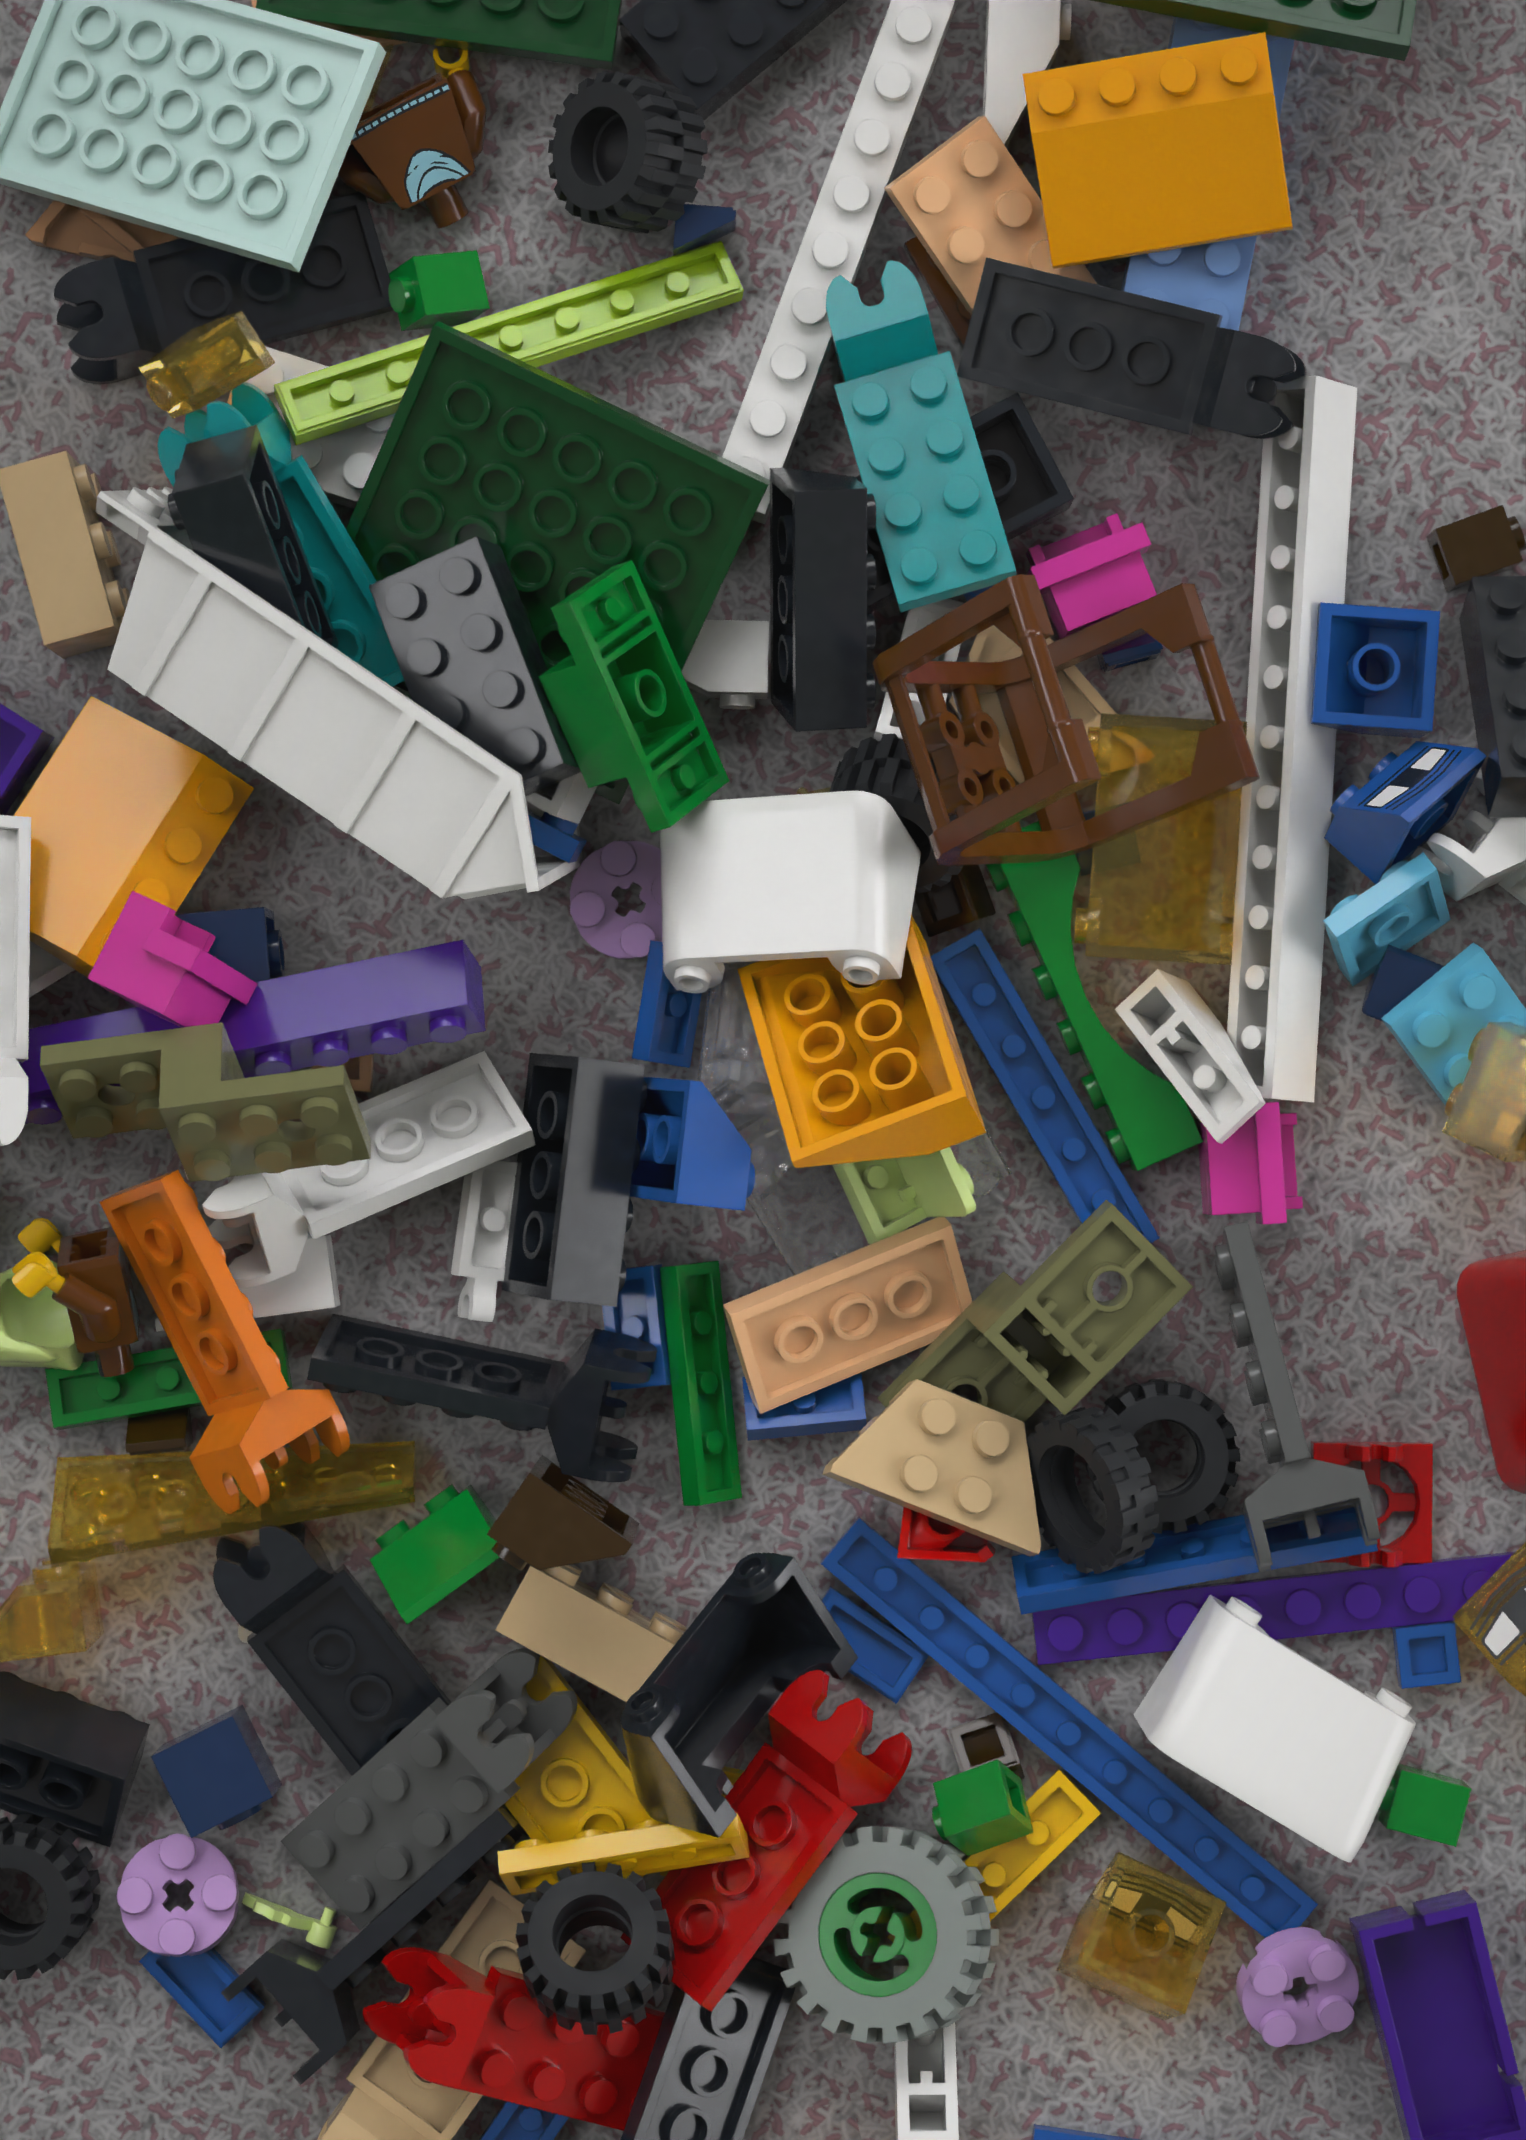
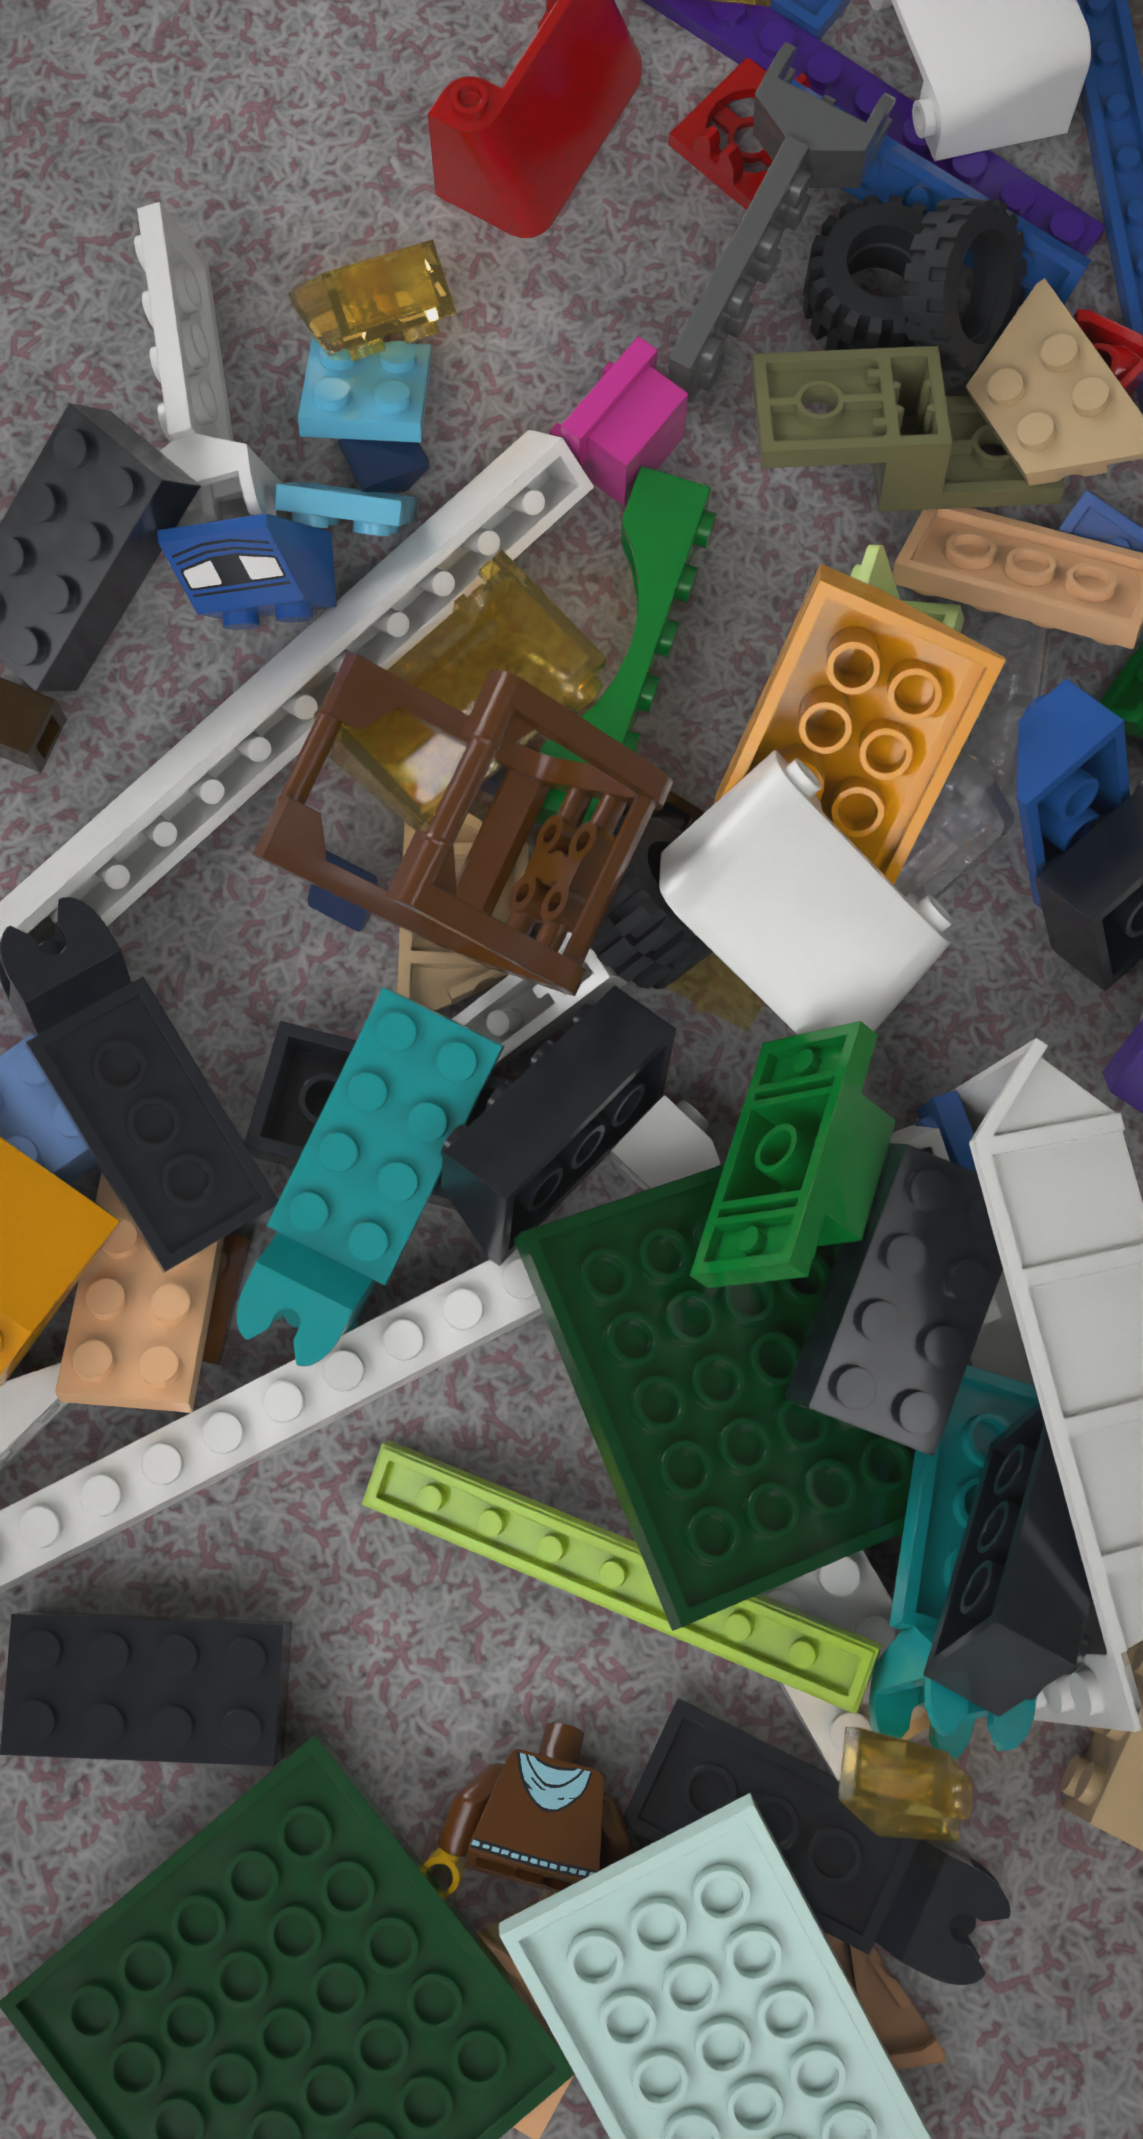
camera: 135 degrees left, 10 degrees down
(438, 289) = (634, 1677): green brick -> none
(595, 908) = (948, 1060): lavender plate -> none
(627, 152) = (396, 1676): black tyre -> none
(665, 1017) = (979, 917): blue plate -> none
(702, 226) = (368, 1532): dark blue slope -> none
(1034, 1081) = (726, 621): blue plate -> none
(1092, 574) = (321, 958): dark pink plate -> none
(1192, 1052) = (590, 518): white slope -> none
(1375, 669) = (173, 687): blue slope -> none

